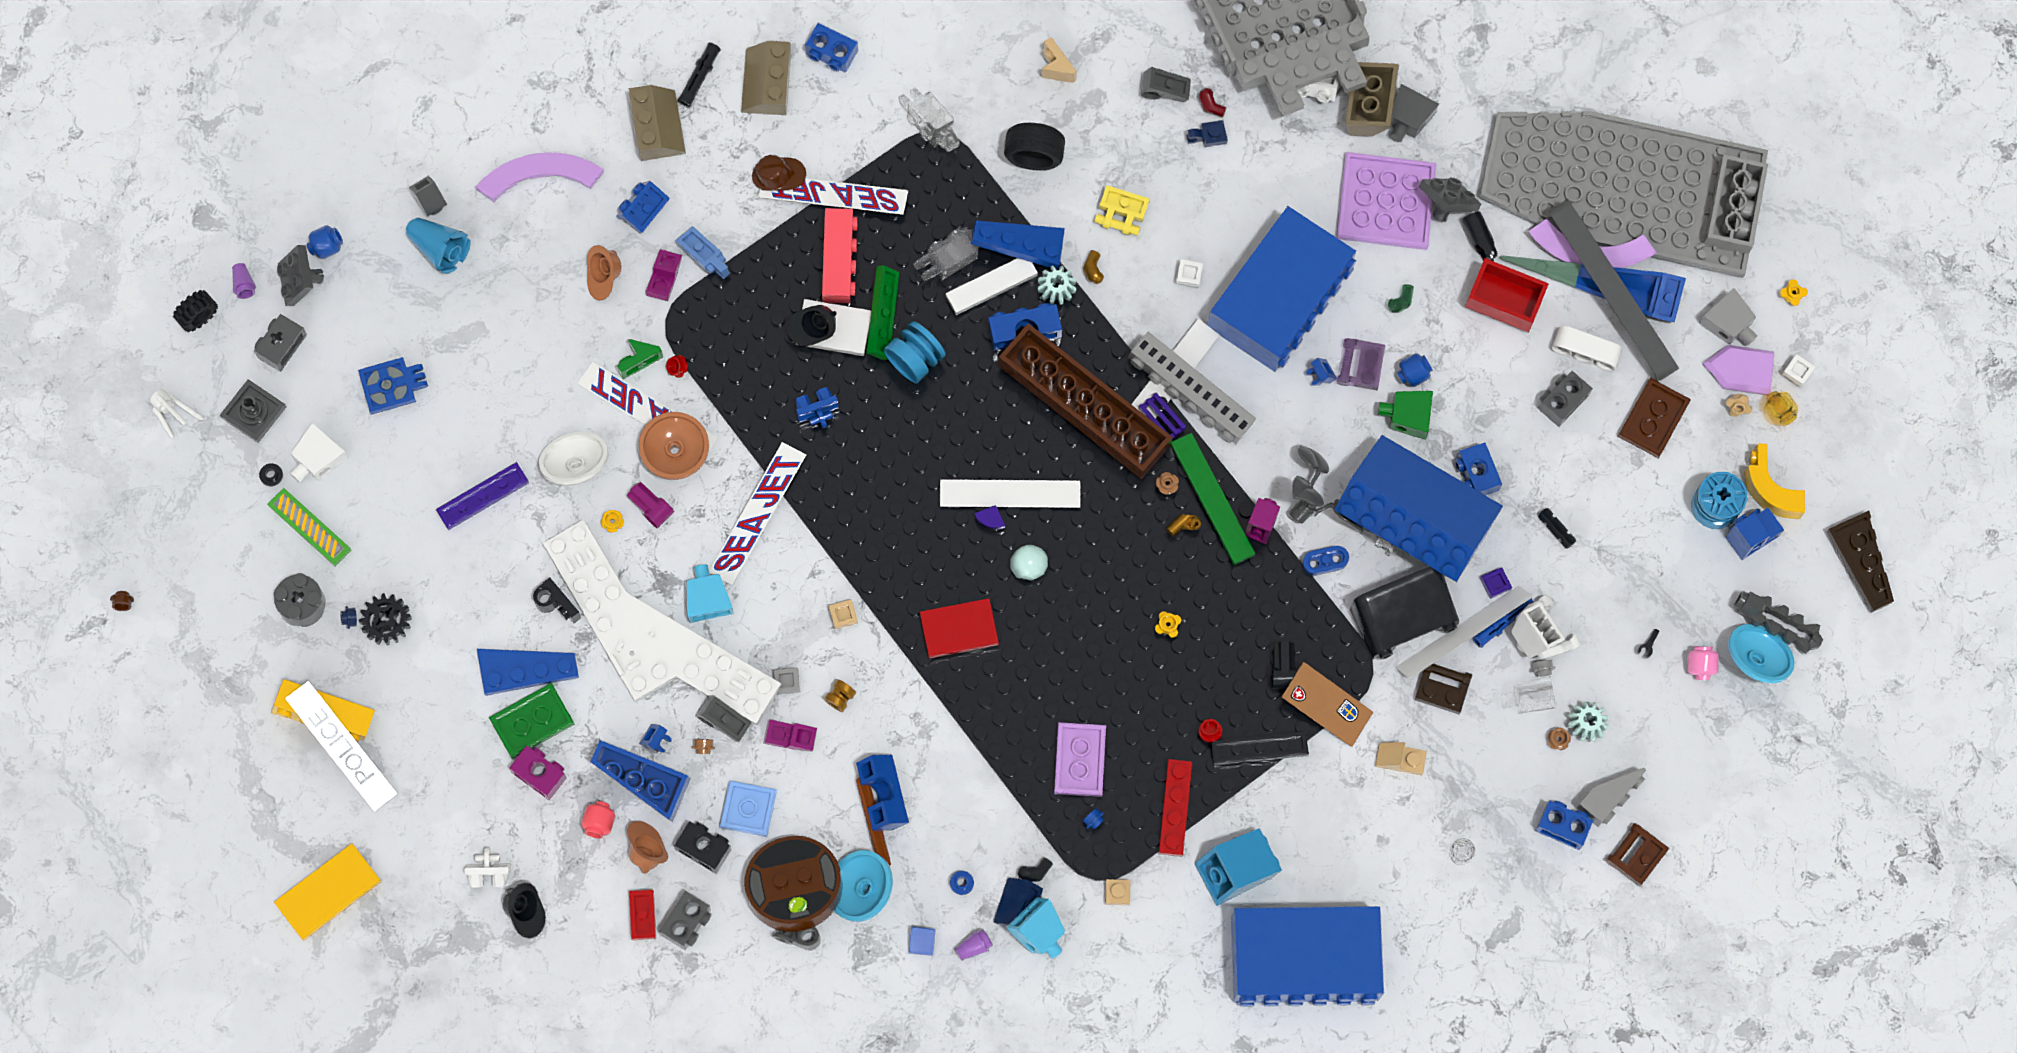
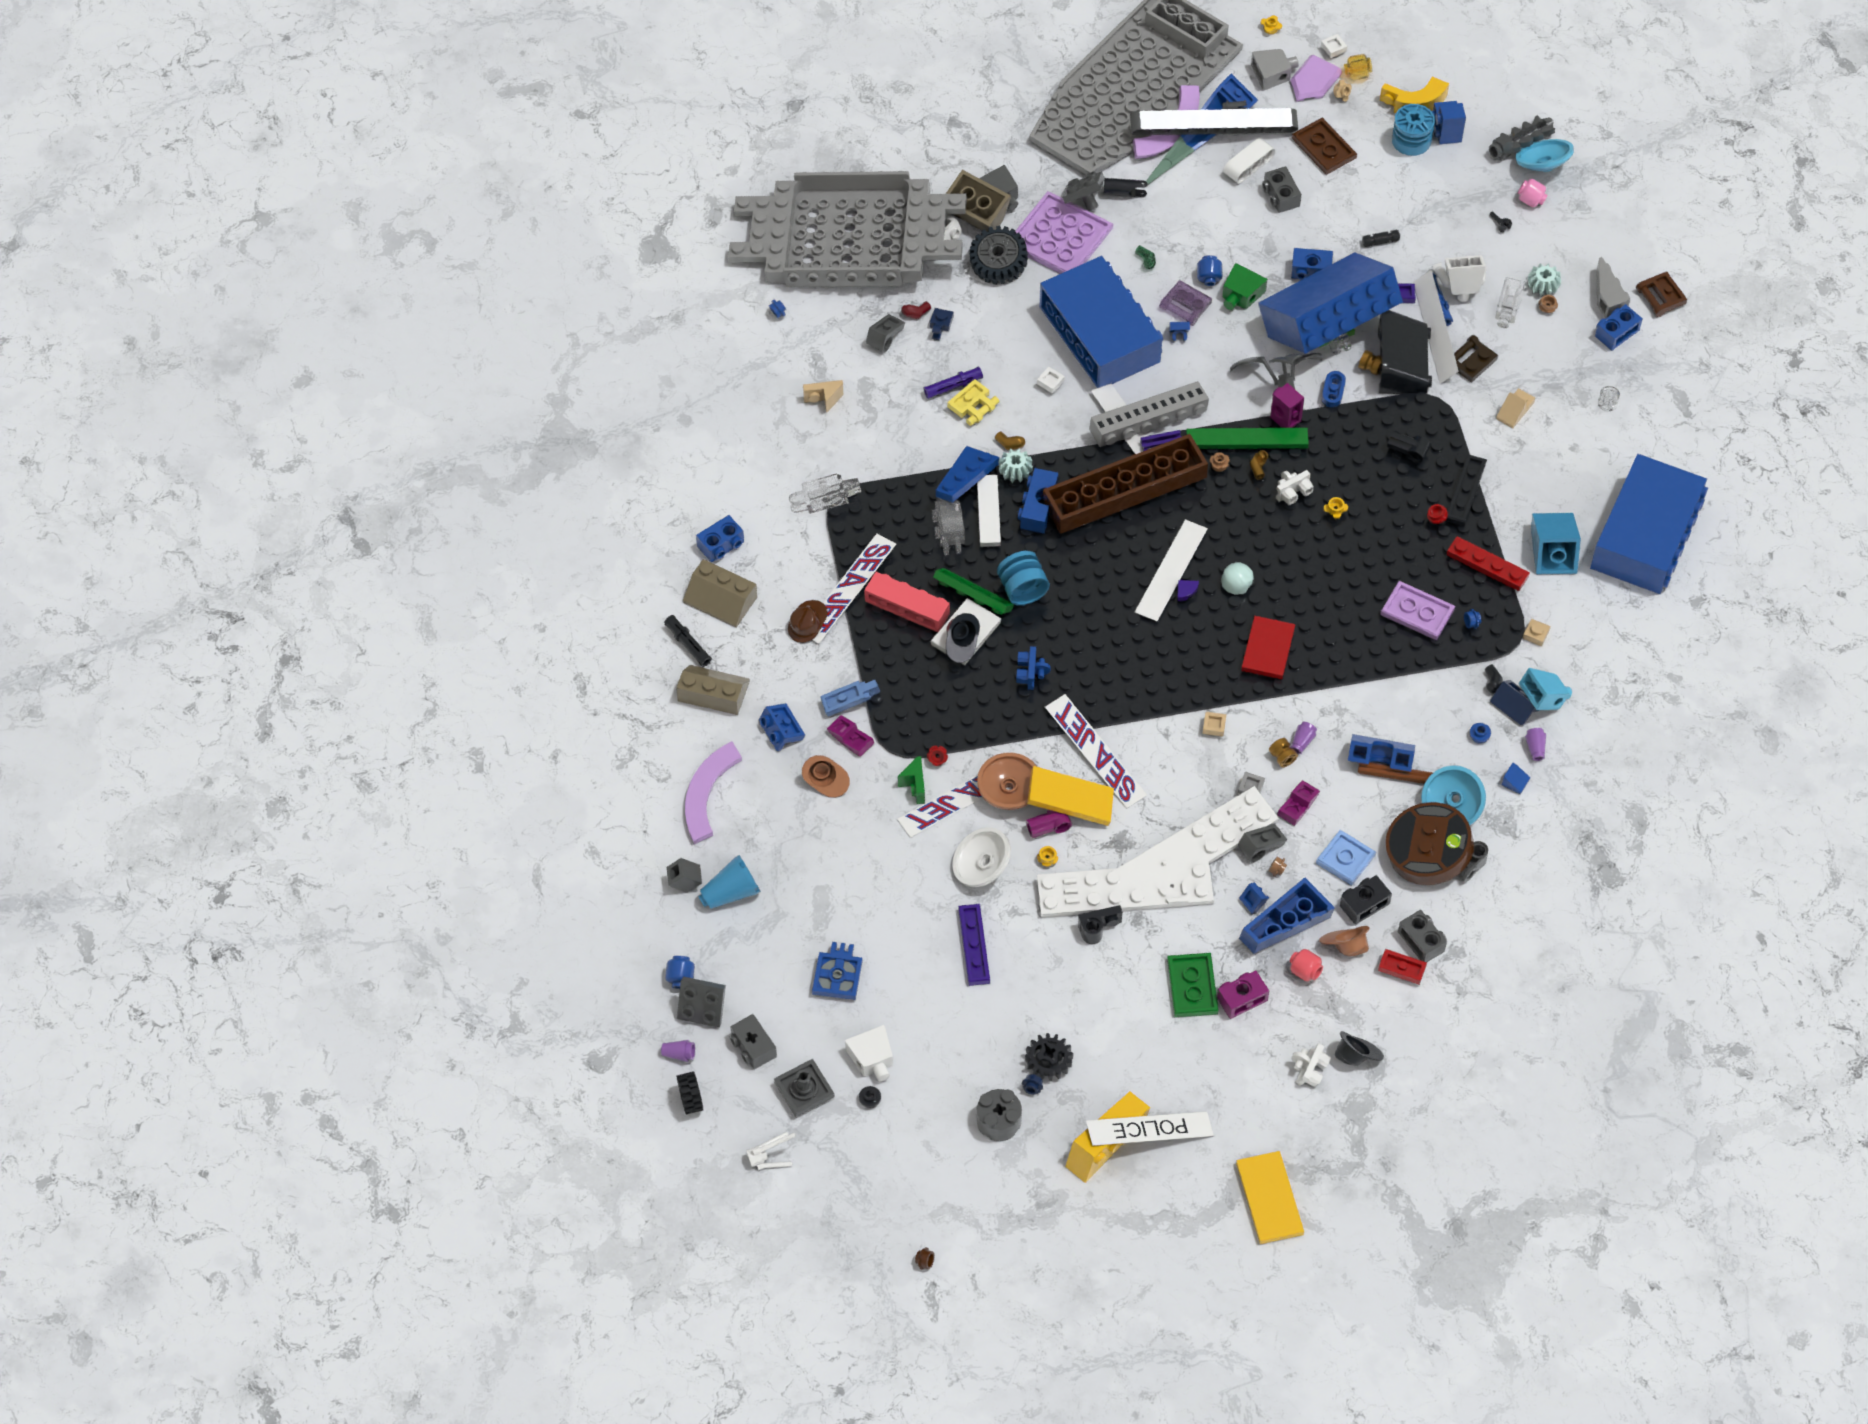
camera: 60 degrees left, 15 degrees down
(309, 527) = (932, 1086): tile -> none
(517, 670) = (1142, 978): blue wing -> none
(684, 511) = (1070, 795): none -> yellow tile
(706, 596) = (1150, 812): medium azure torso -> none
(870, 708) = (1304, 735): none -> medium lavender cone
(1034, 146) = (891, 430): black tyre -> none
(1141, 183) = (948, 384): none -> dark purple pin
(1178, 576) = (1291, 484): none -> white hips
(1320, 135) = (995, 242): none -> wheel
(1327, 704) = (1452, 432): medium nougat sticker -> none
(1378, 579) = (1370, 362): none -> pearl gold wheel
(1506, 295) = (1182, 188): red piece -> none
(1543, 668) = (1488, 290): light grey plate -> none
(1645, 301) = (1234, 105): none -> dark grey pin
(1859, 552) = (1500, 70): dark brown wing -> none

